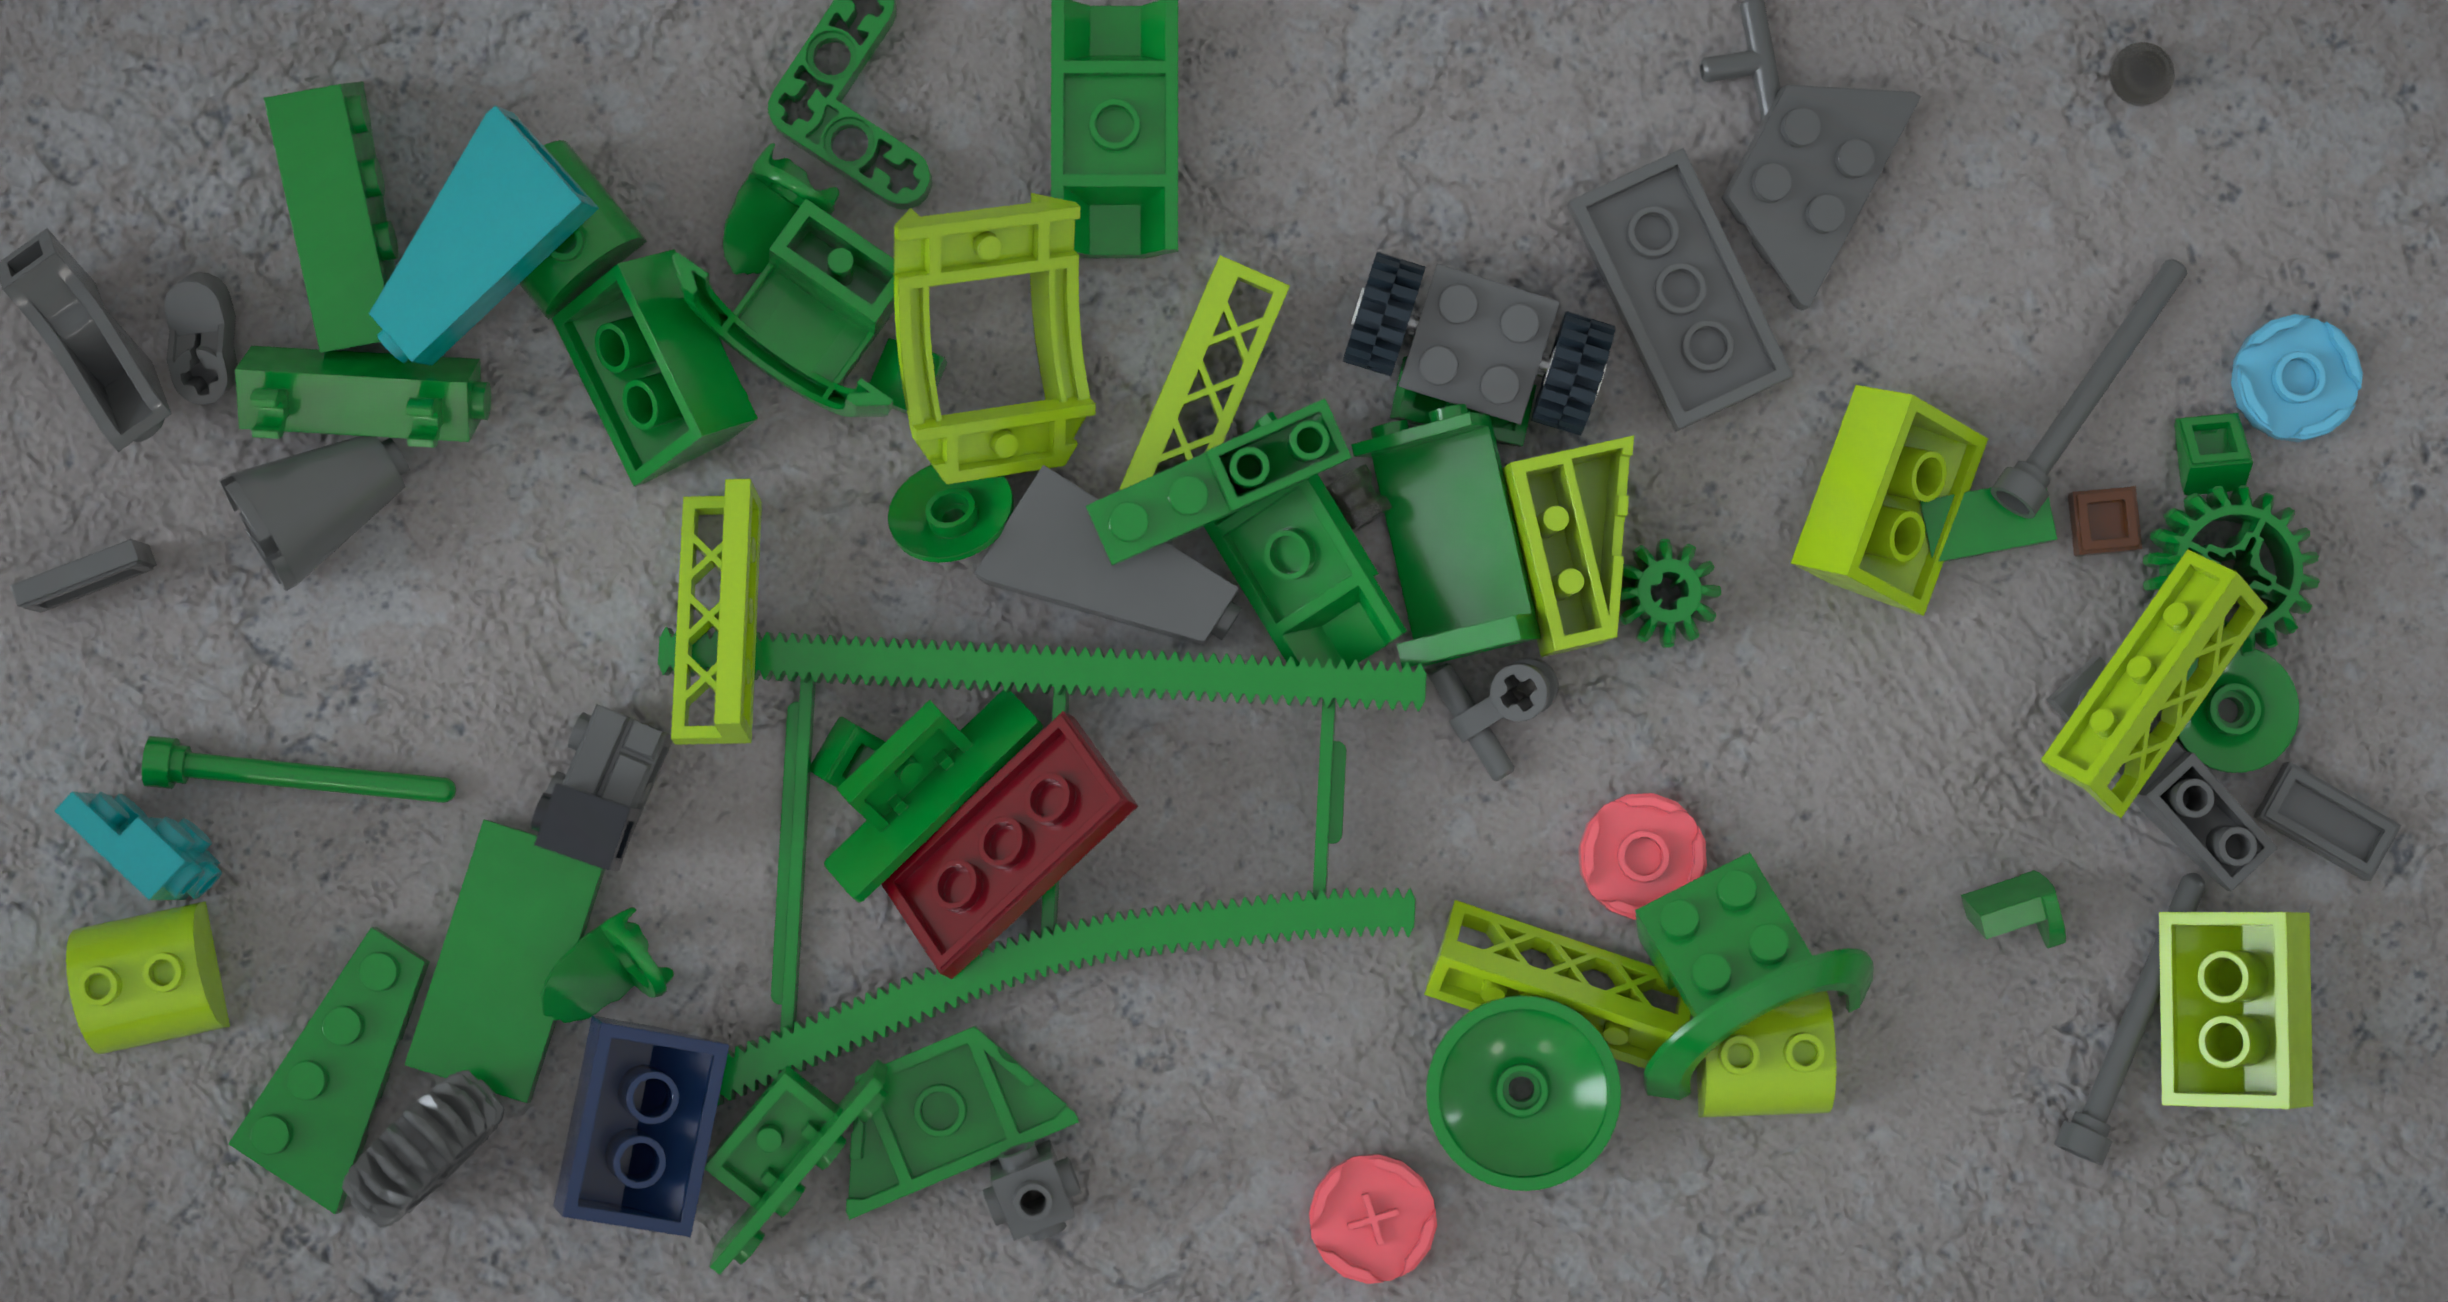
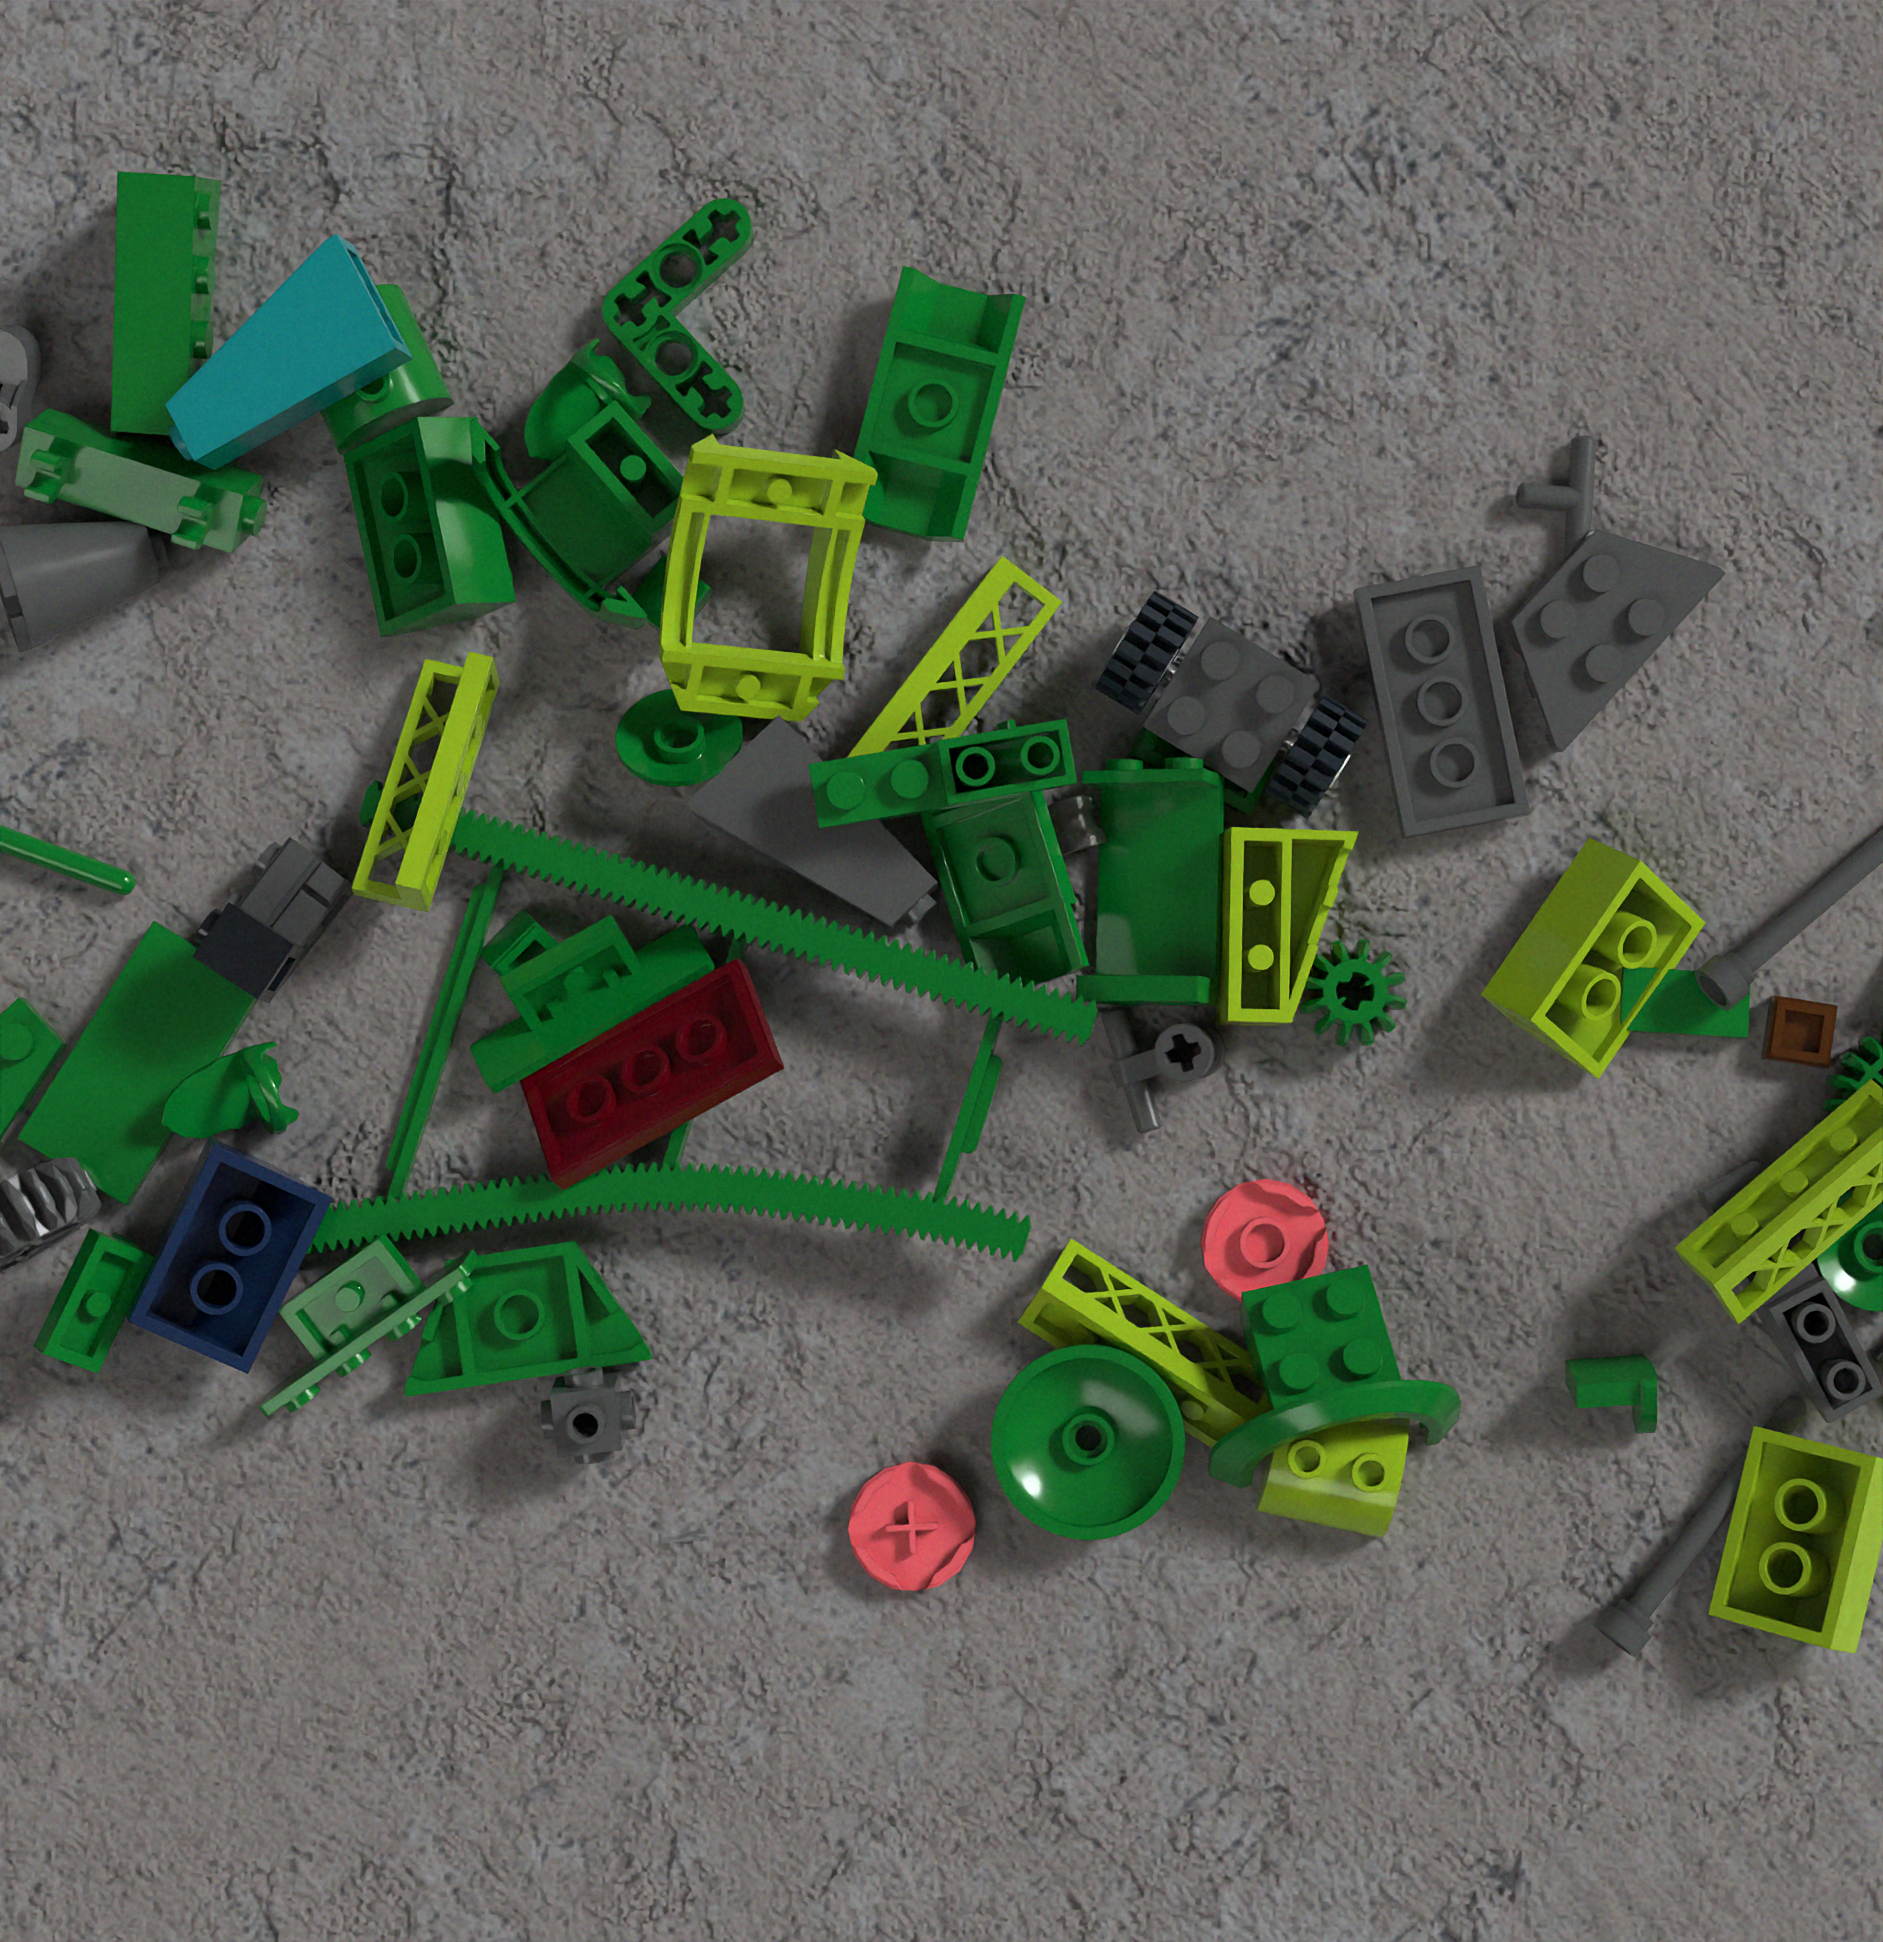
camera: 20 degrees right, 0 degrees up
(522, 1204) = (93, 1300): none -> green panel

